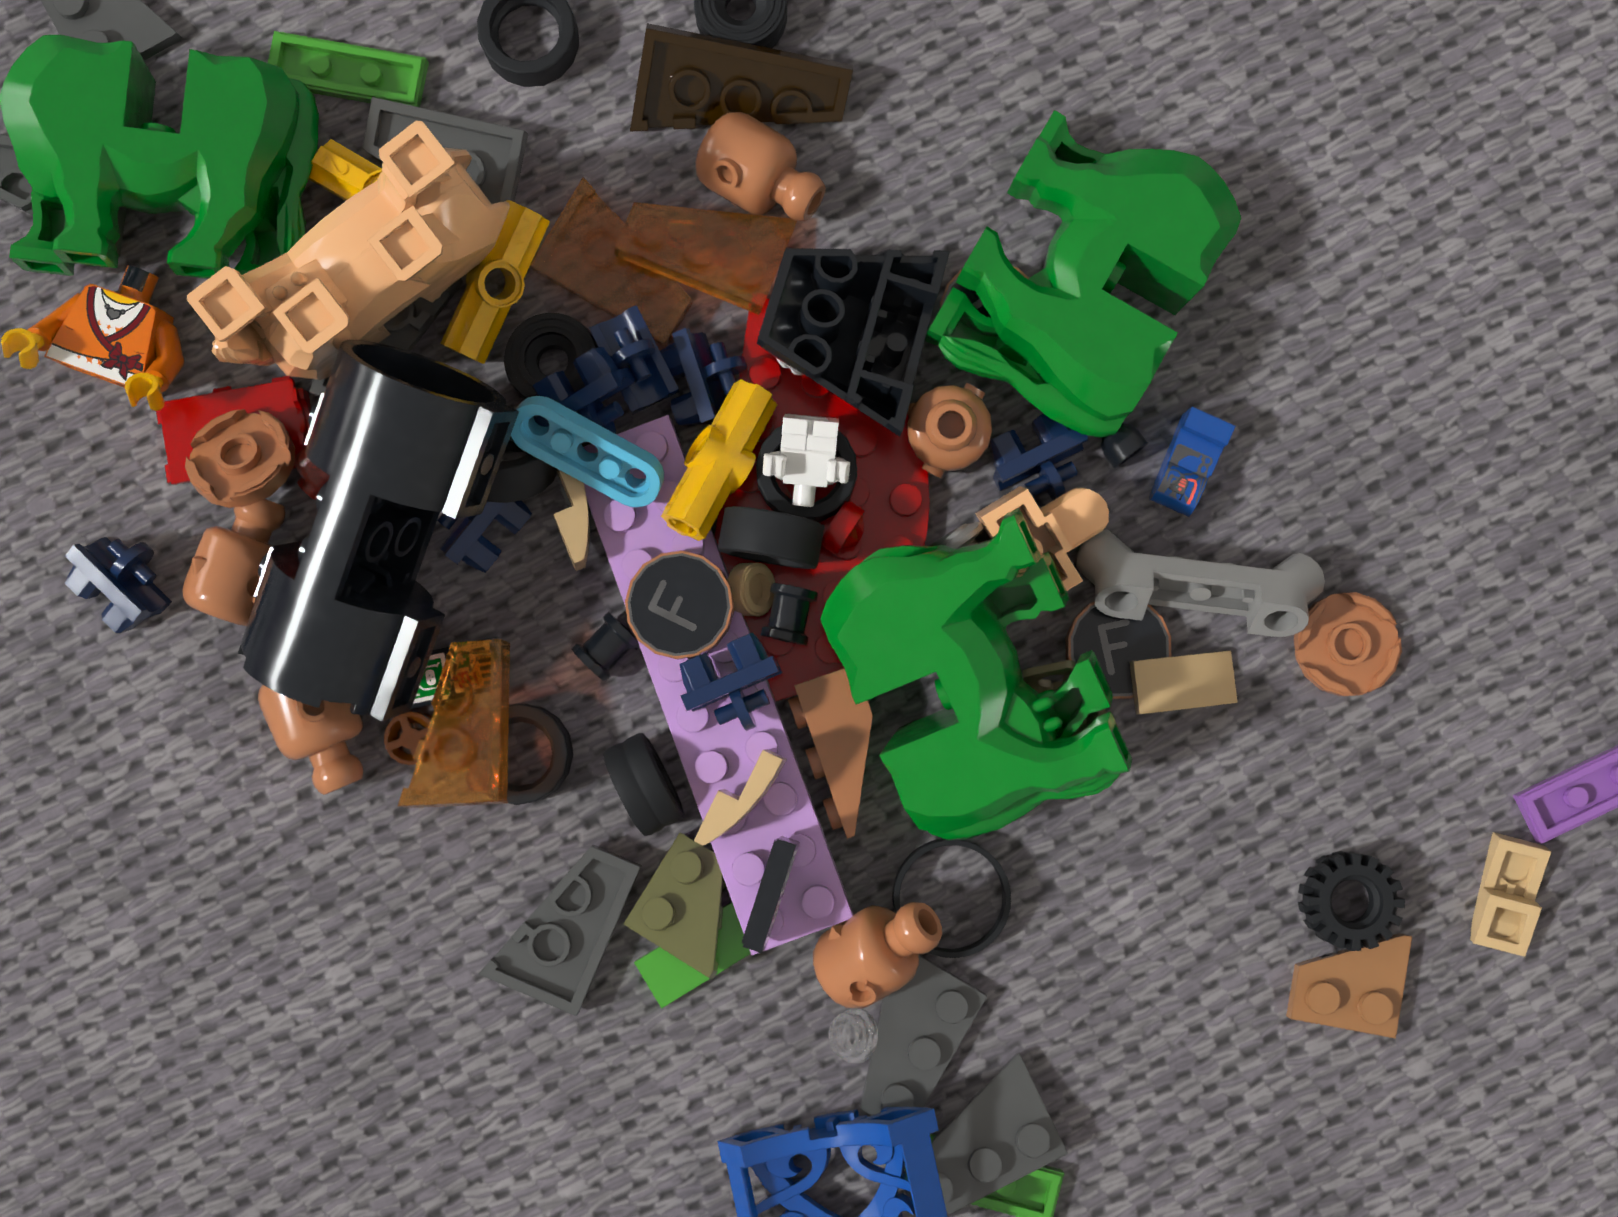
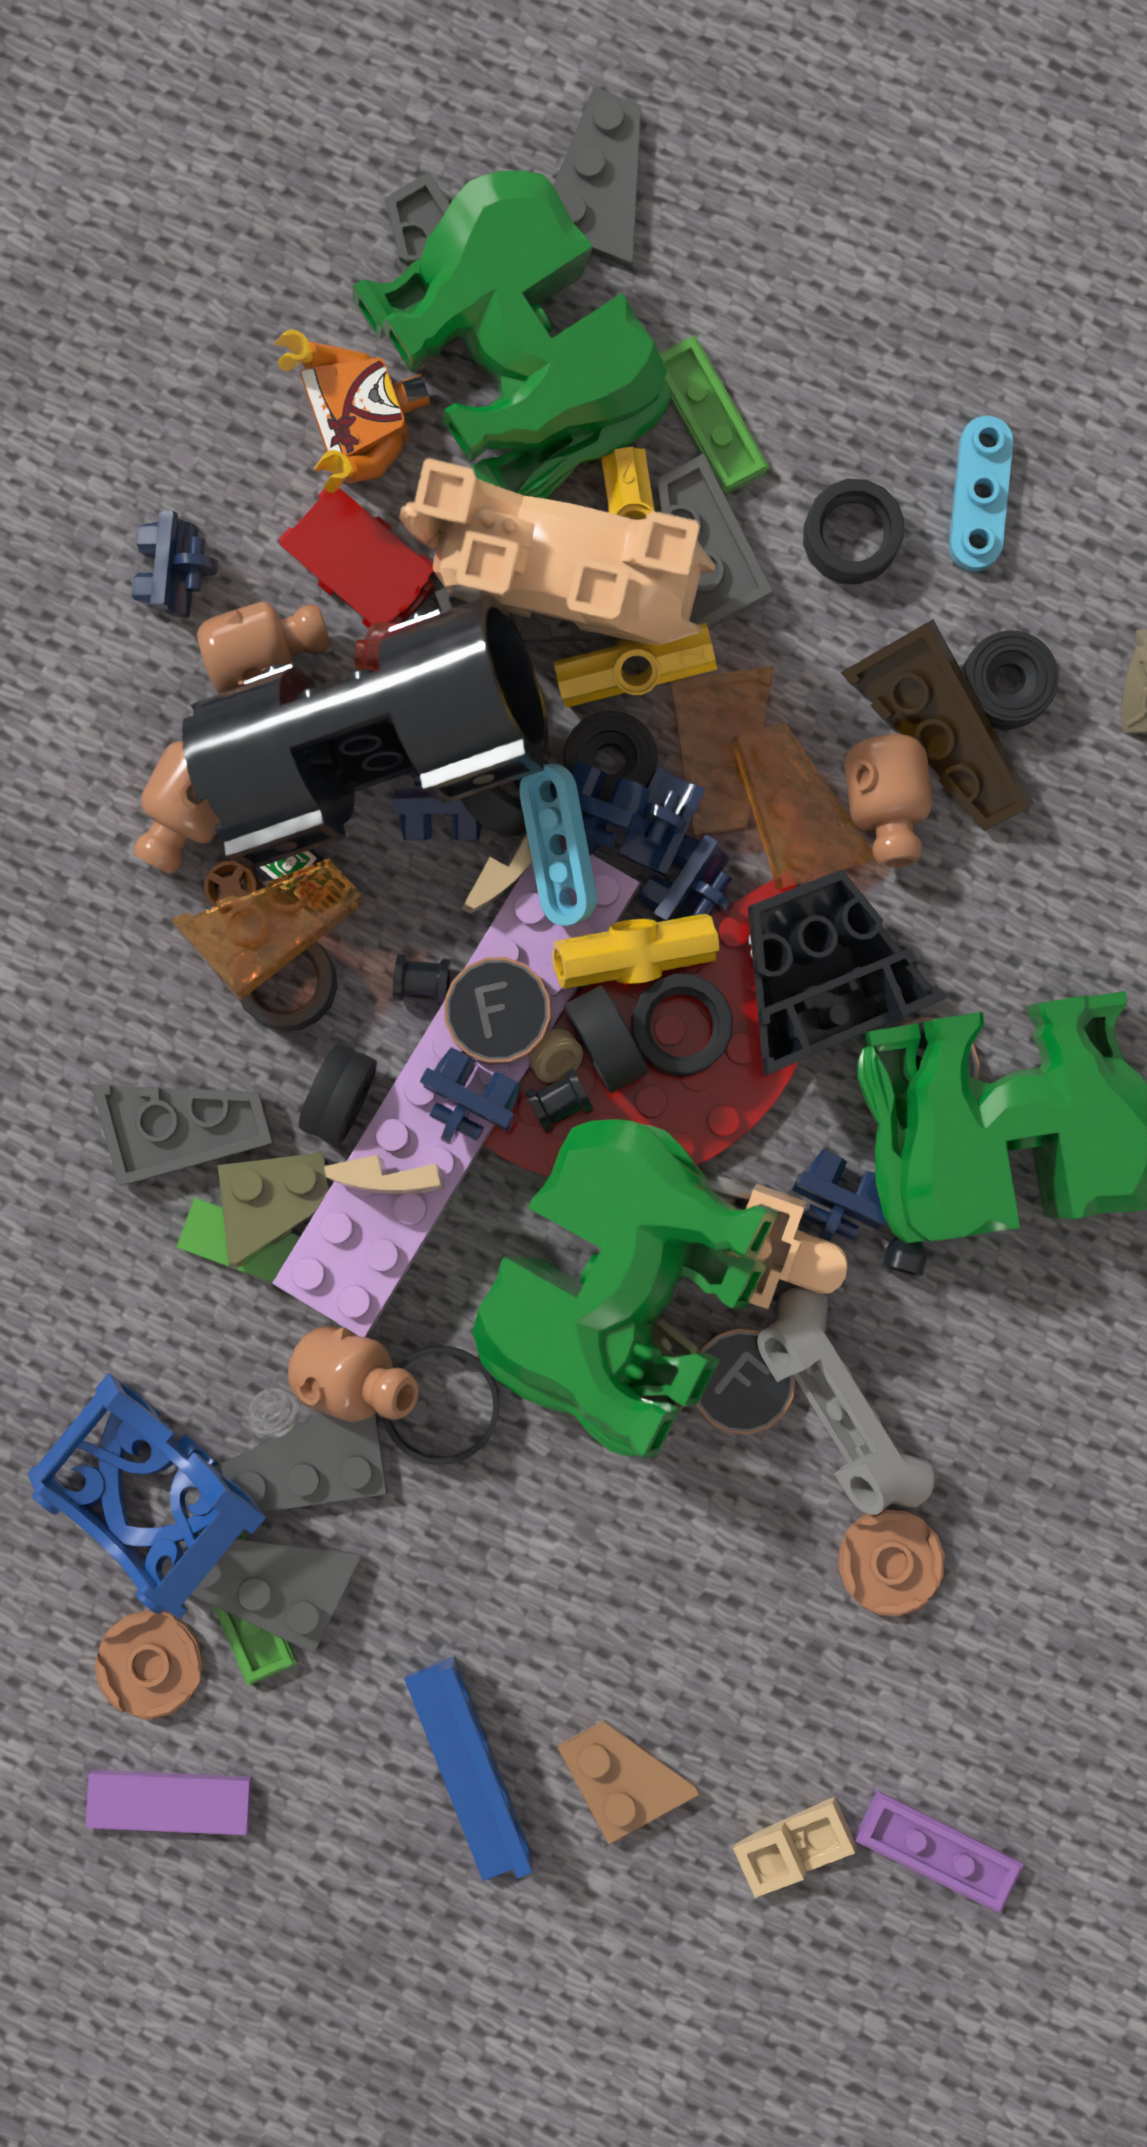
camera: 50 degrees right, 0 degrees up
(240, 458) = (341, 582): nougat tile -> none
(770, 894) = (330, 1258): black tile -> none
(807, 457) = (690, 1016): white piece -> none
(840, 741) = (491, 1220): nougat slope -> none
(845, 528) = (660, 1091): red tile -> none
(949, 428) = (805, 1109): nougat piece -> none
(1183, 682) = (755, 1454): tan slope -> none
(1190, 460) = (934, 1320): blue leg -> none
(1253, 1101) = (469, 1770): none -> blue fence
(1380, 910) = (688, 1755): black tyre -> none

